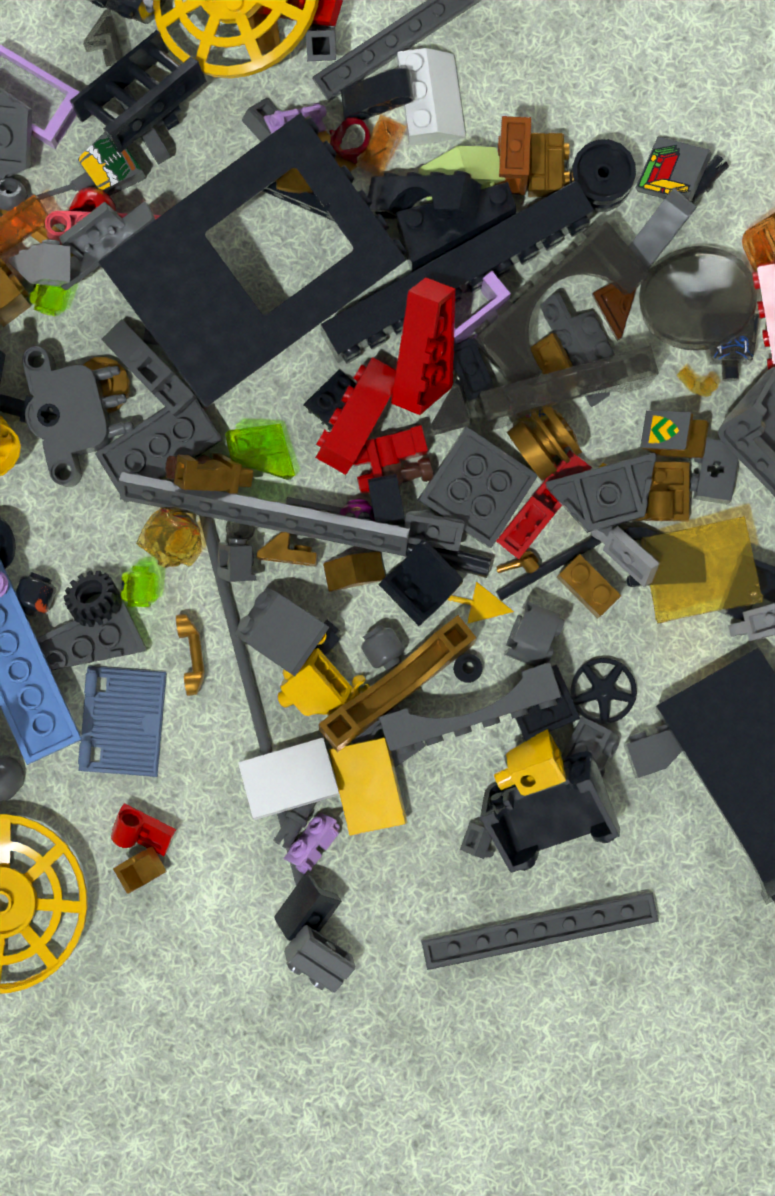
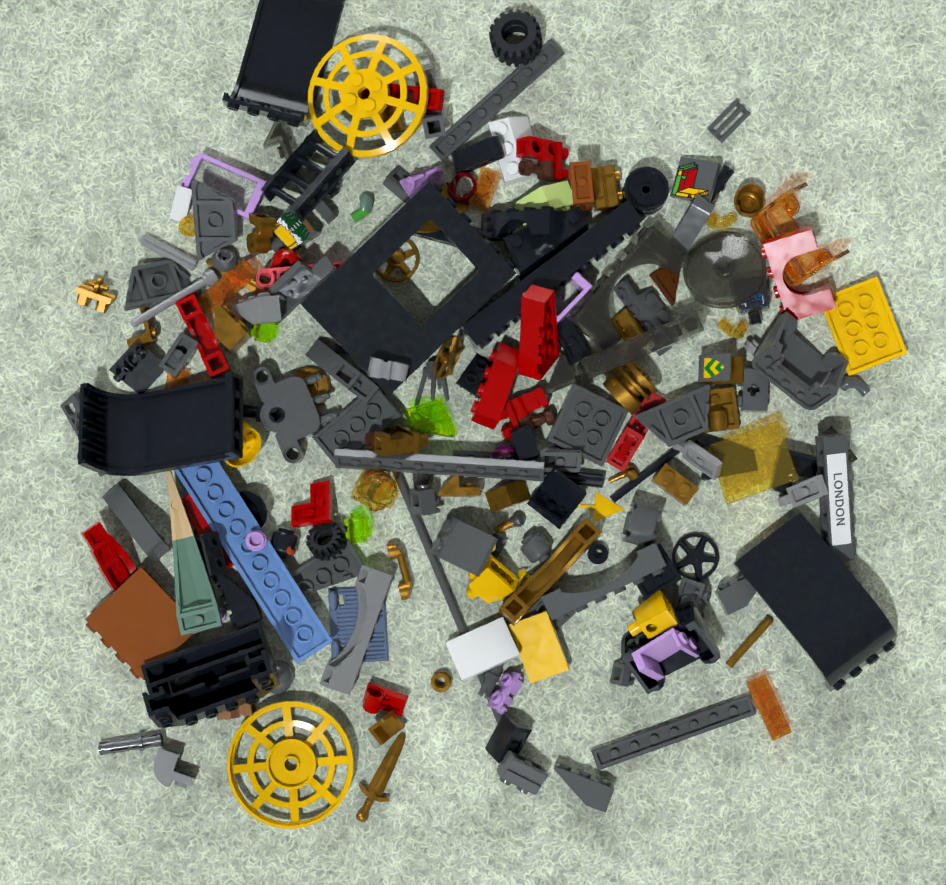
camera: 10 degrees left, 0 degrees up
(60, 171) = (260, 239): none -> pearl gold leg
(87, 555) = (318, 510): none -> red plate
(90, 781) = (343, 669): none -> light grey arch
(123, 939) = (380, 779): none -> pearl gold sword
(208, 369) = (387, 370): none -> light grey leg
(212, 150) = (365, 208): none -> arm
(216, 819) = (436, 676): none -> pearl gold plate
(246, 226) = (397, 261): none -> pearl gold wheel
(275, 386) = (429, 371): none -> dark grey plant
(296, 366) = (447, 356): none -> pearl gold wheel
(361, 607) = (516, 520): none -> piece
(412, 999) = (592, 793): none -> dark grey slope
(474, 107) = (548, 156): none -> red hips
(537, 811) = (649, 656): none -> lavender panel
(662, 819) = (749, 642): none -> pearl gold bar
(677, 914) = (768, 707): none -> clear orange plate
(700, 235) = (720, 223): none -> clear yellow arm
(721, 410) = (752, 346): none -> light grey plate
(744, 207) = (749, 200): none -> pearl gold hair
(749, 82) = (741, 108): none -> dark grey tile

